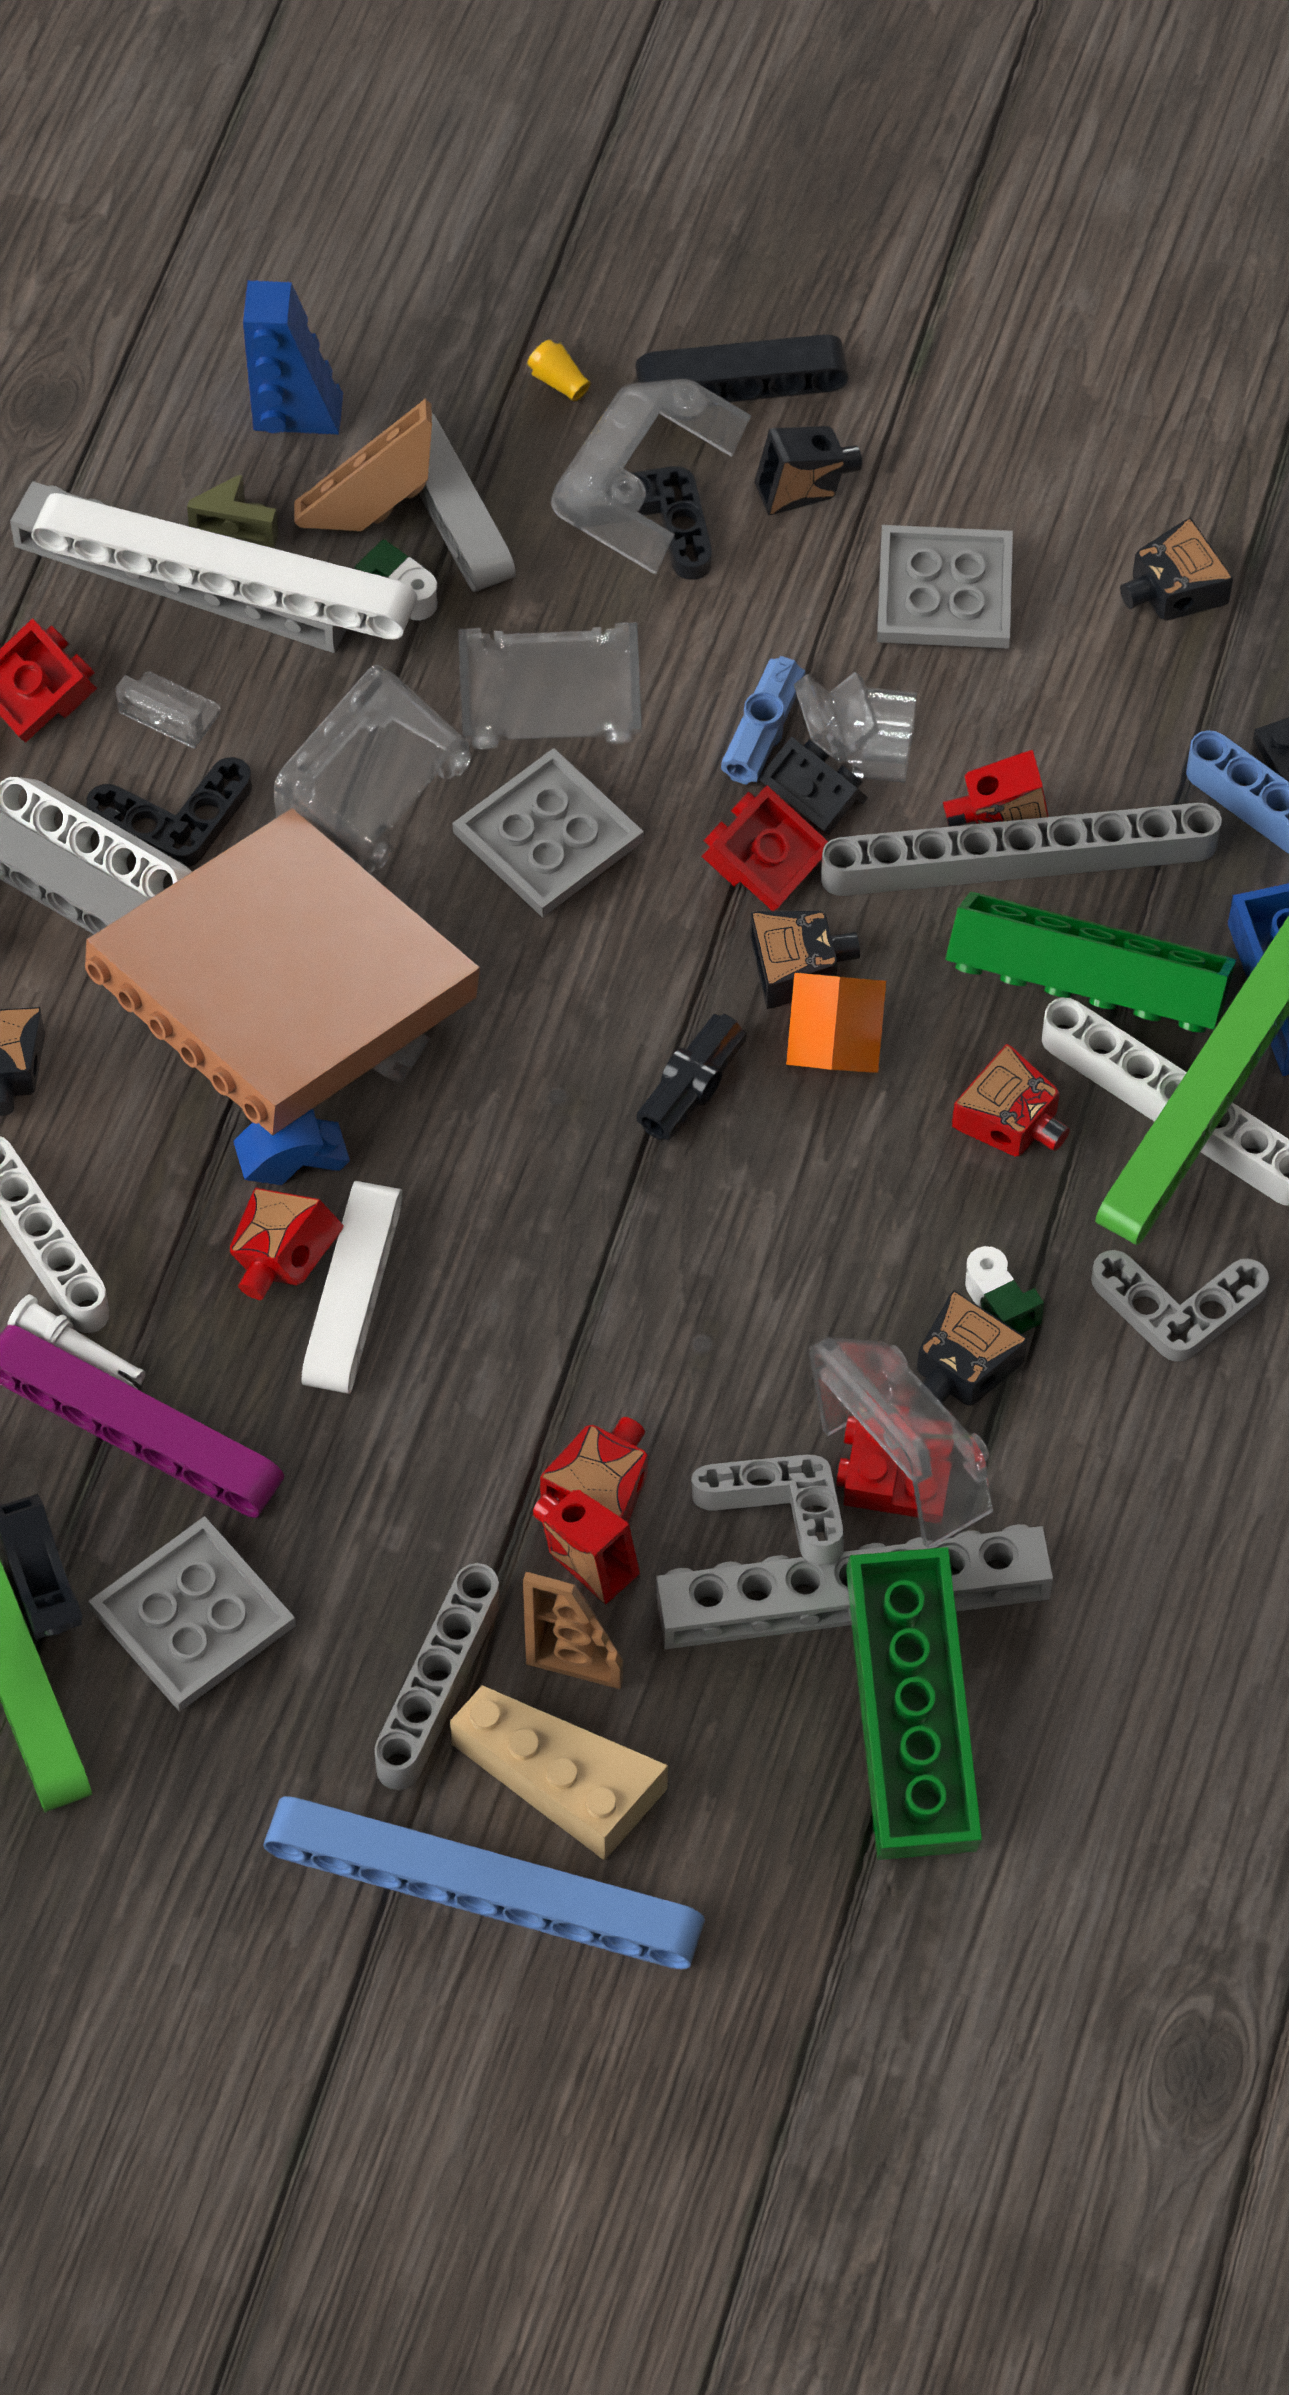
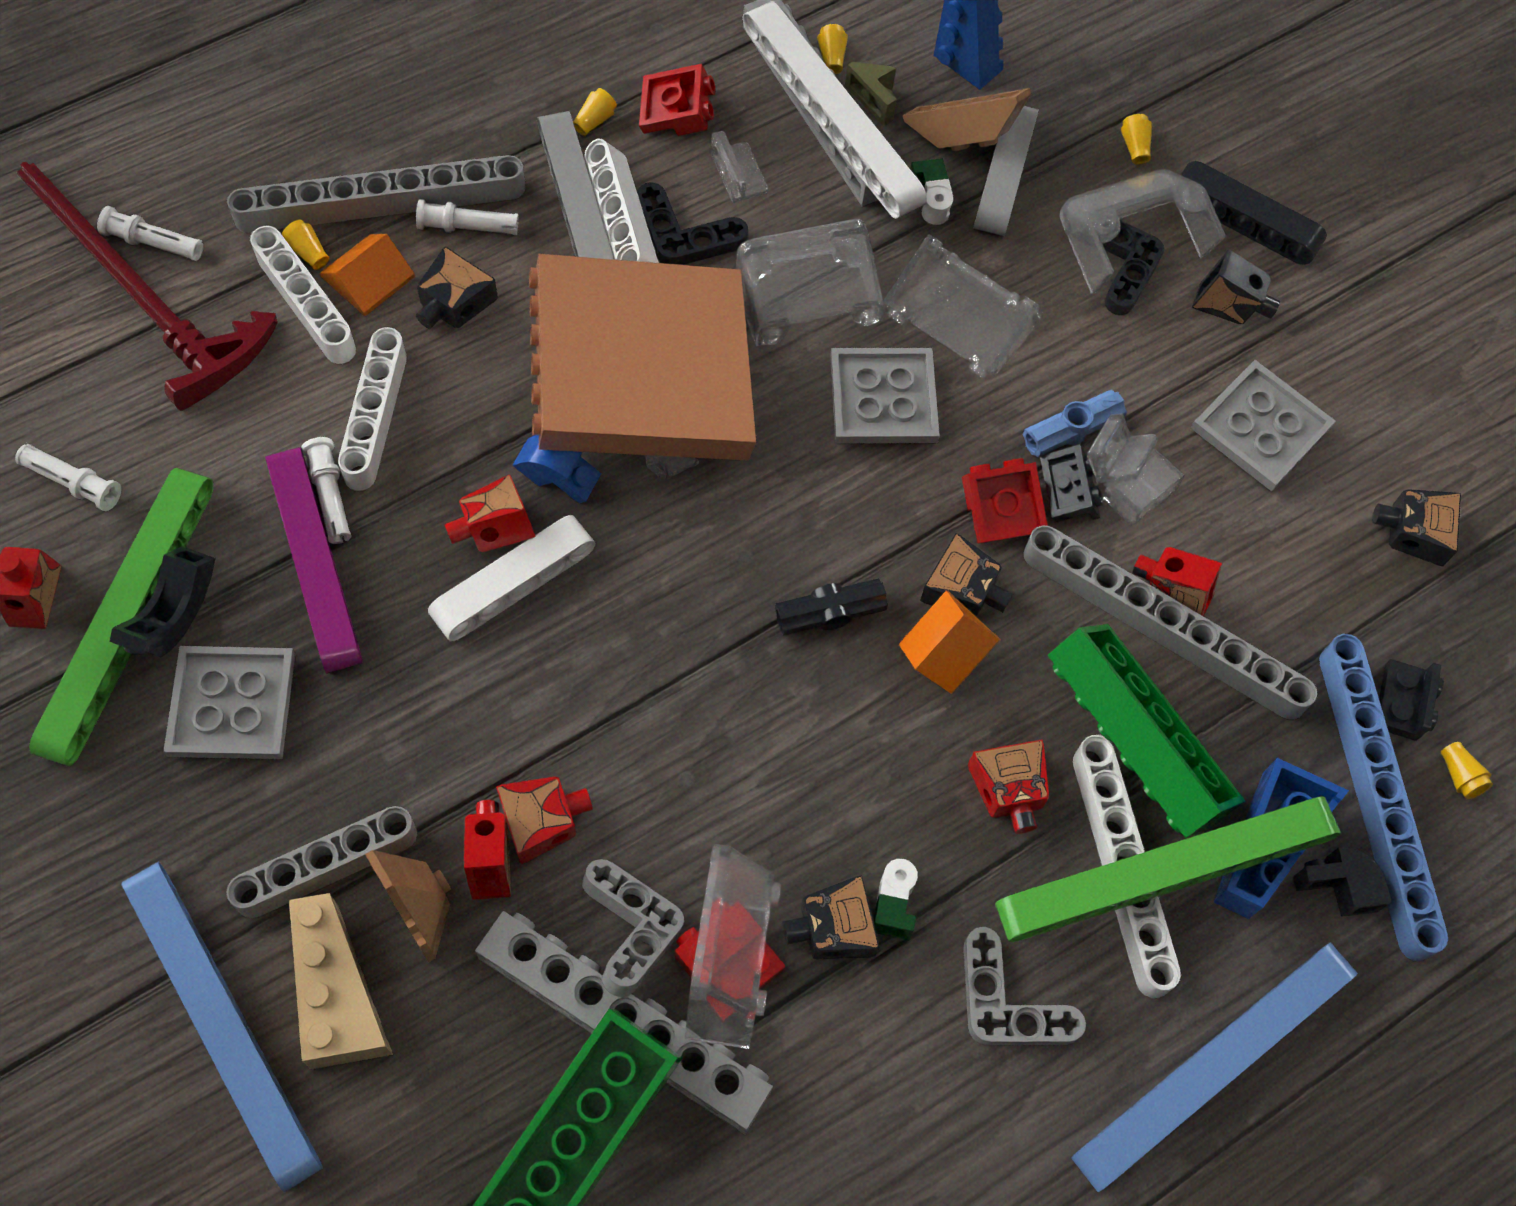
camera: 35 degrees right, 5 degrees up
(140, 495) = (832, 45): none -> yellow cone

